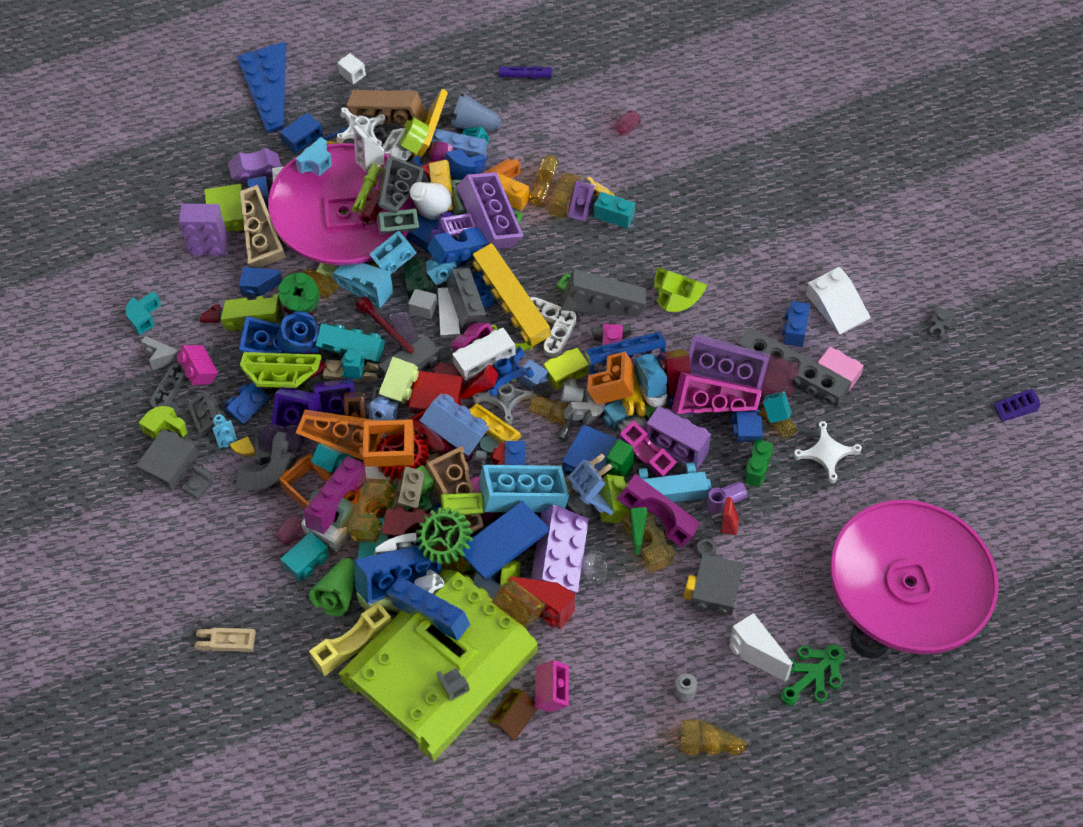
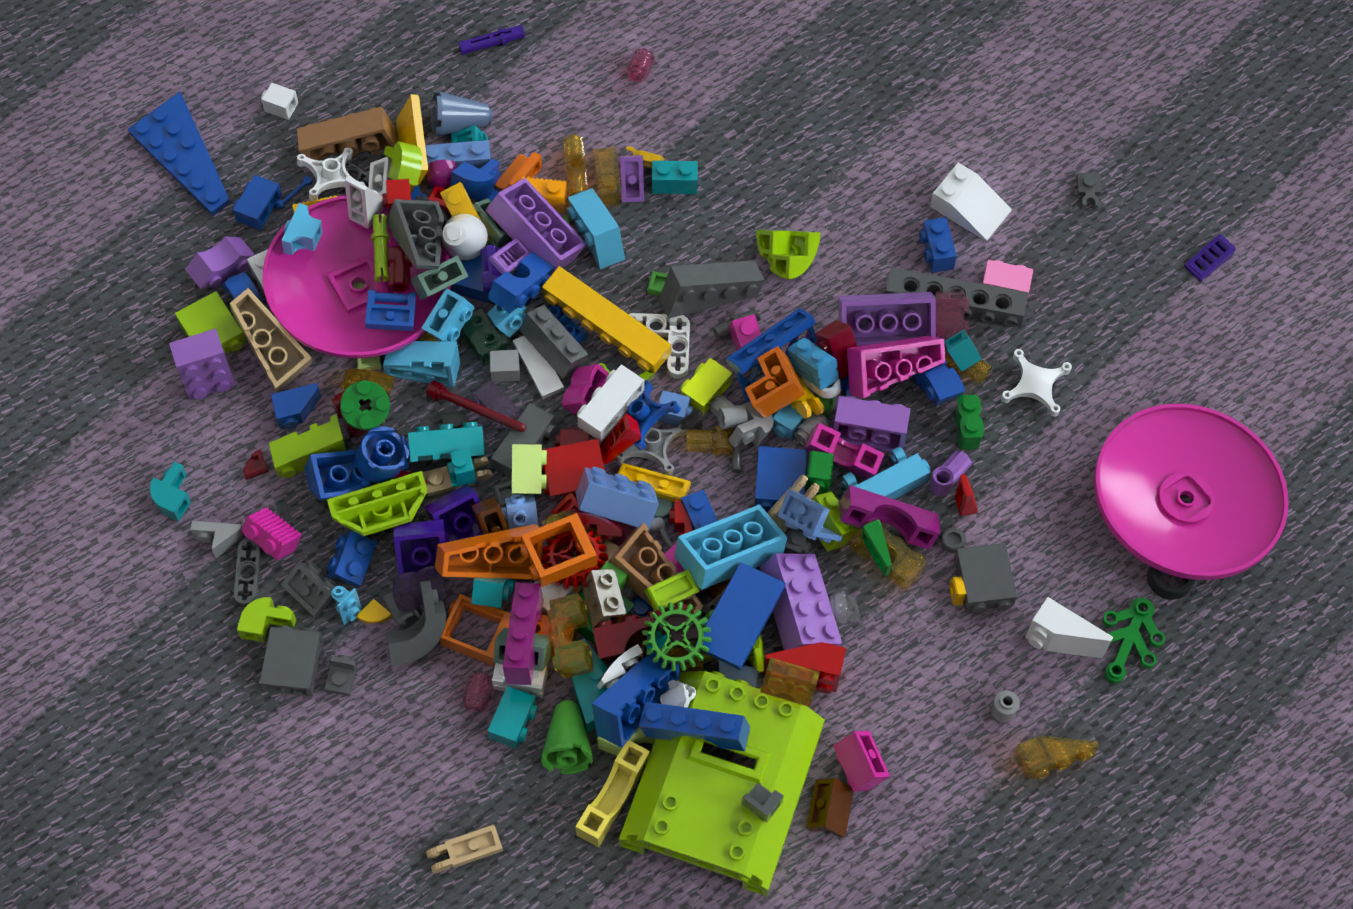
camera: 25 degrees left, 5 degrees up
(351, 238) = (390, 316): none -> blue plate
(397, 150) = (396, 190): none -> red brick
(537, 228) = (596, 227): none -> medium azure wedge

